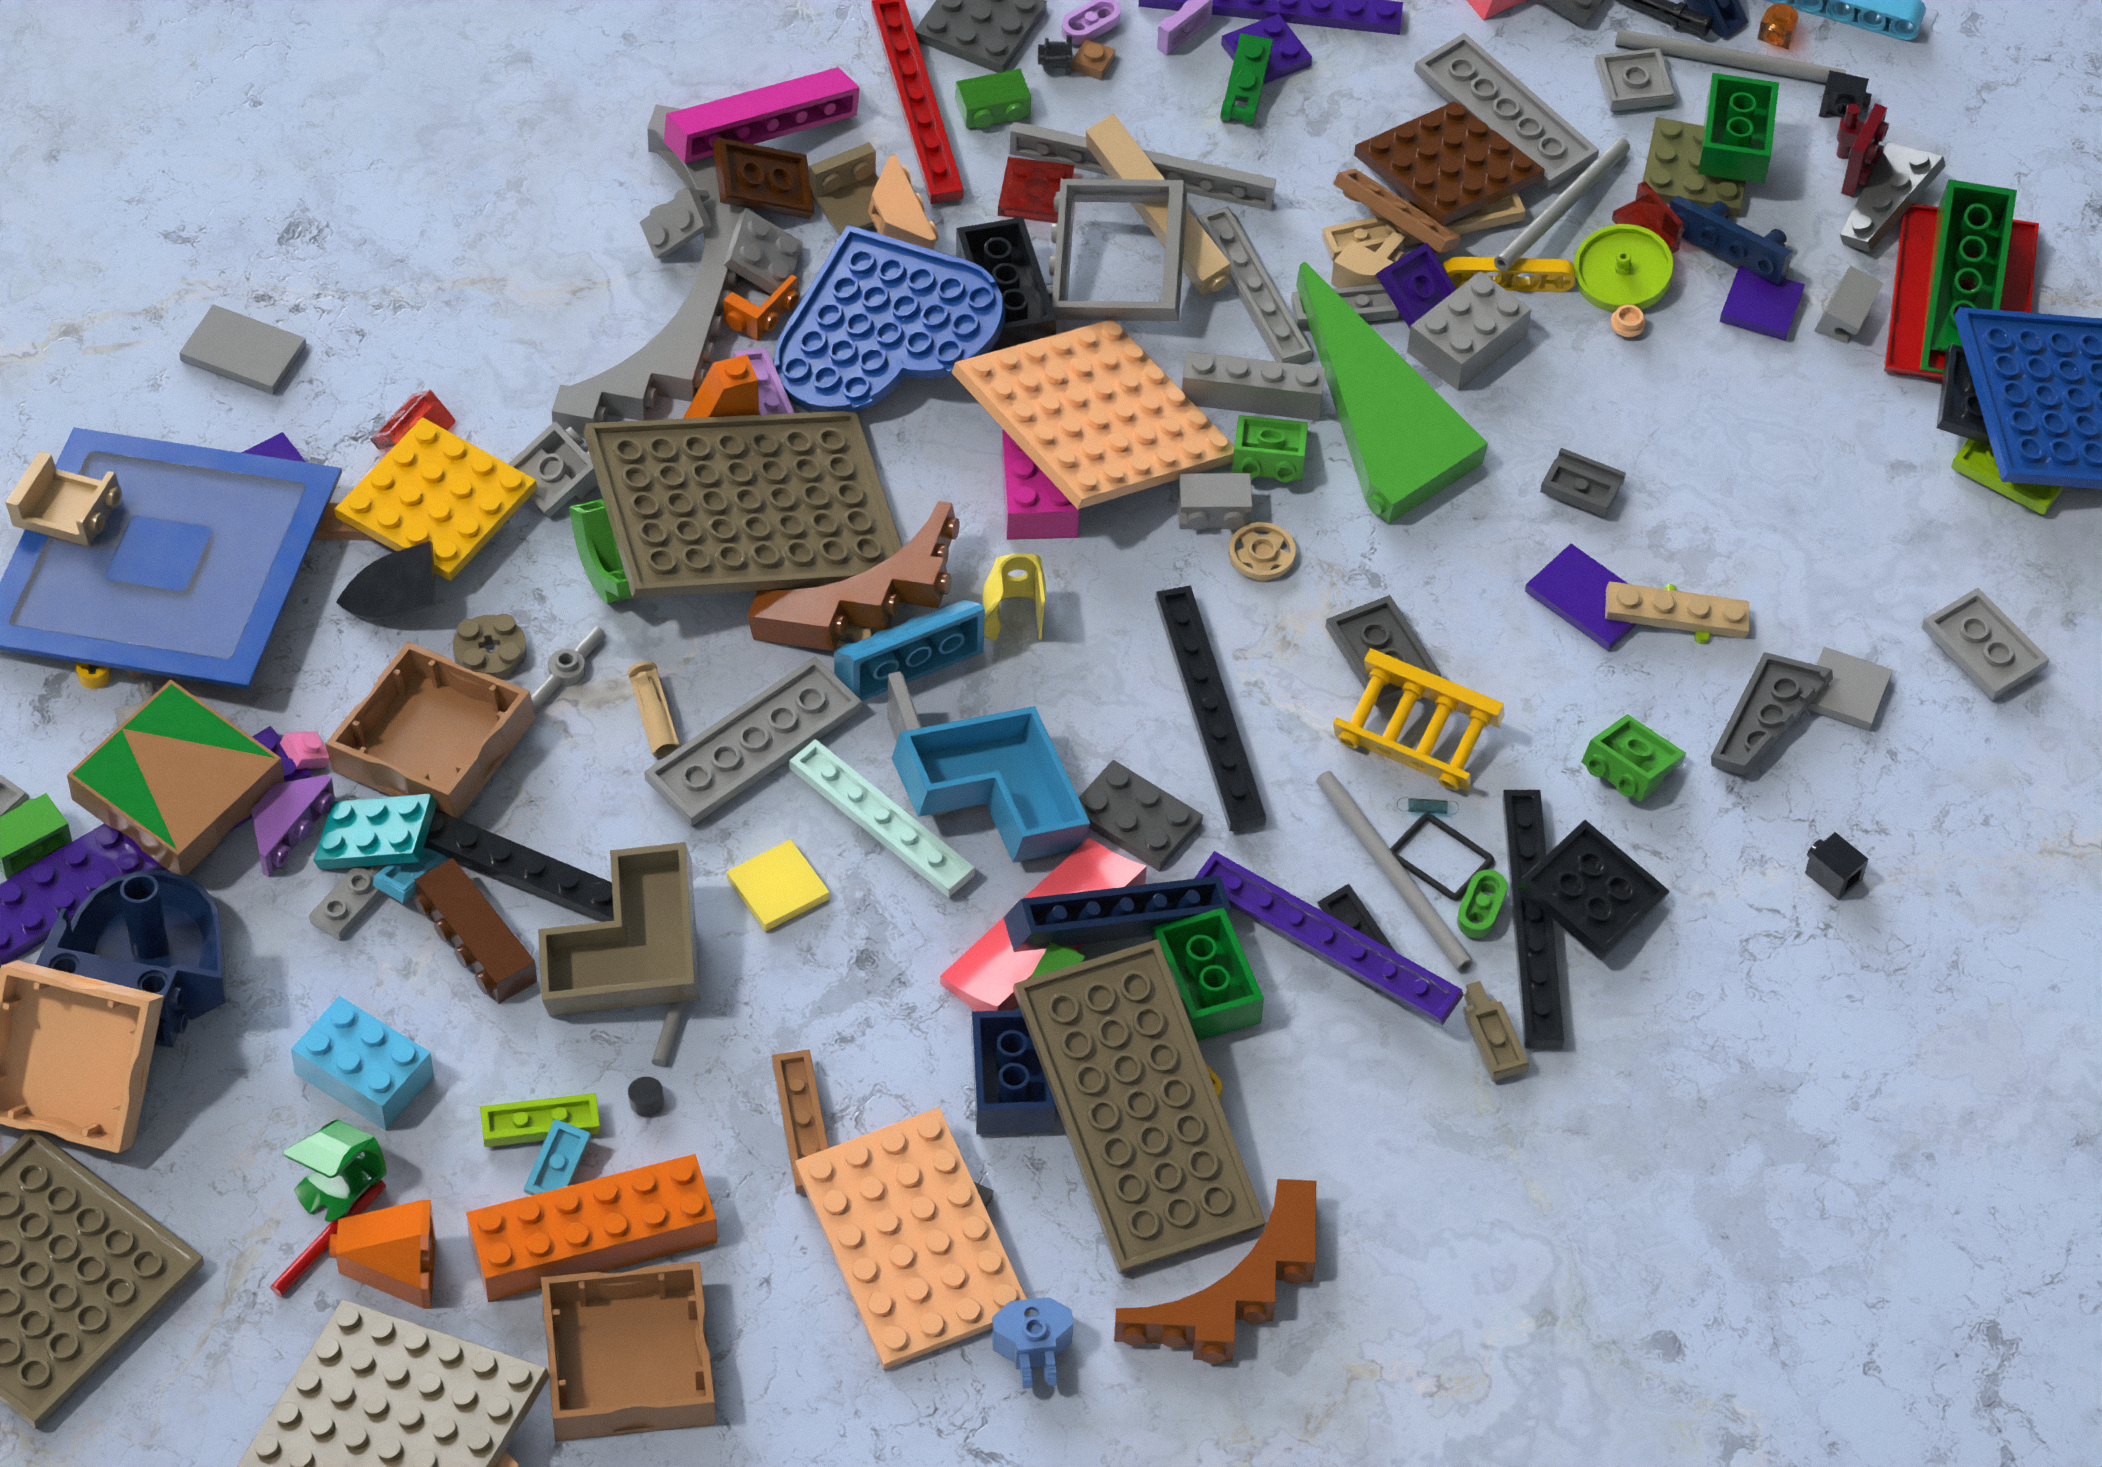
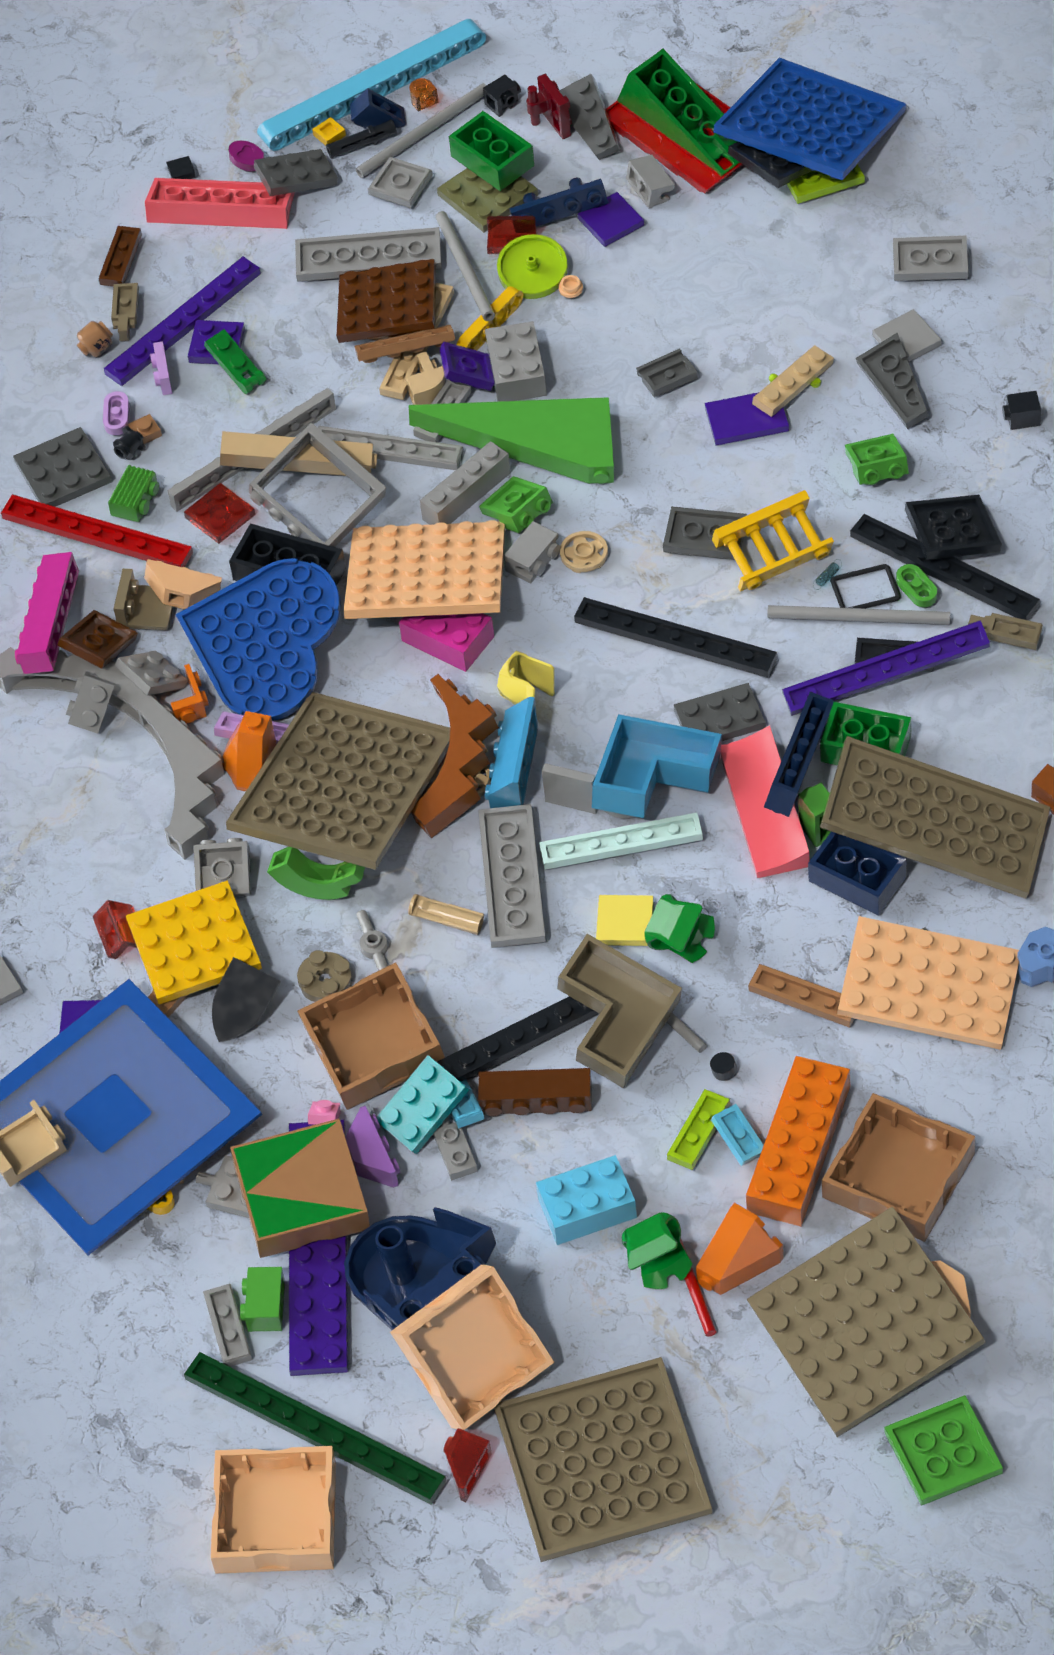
camera: 45 degrees left, 0 degrees up
(796, 938) = (679, 928): none -> green piece

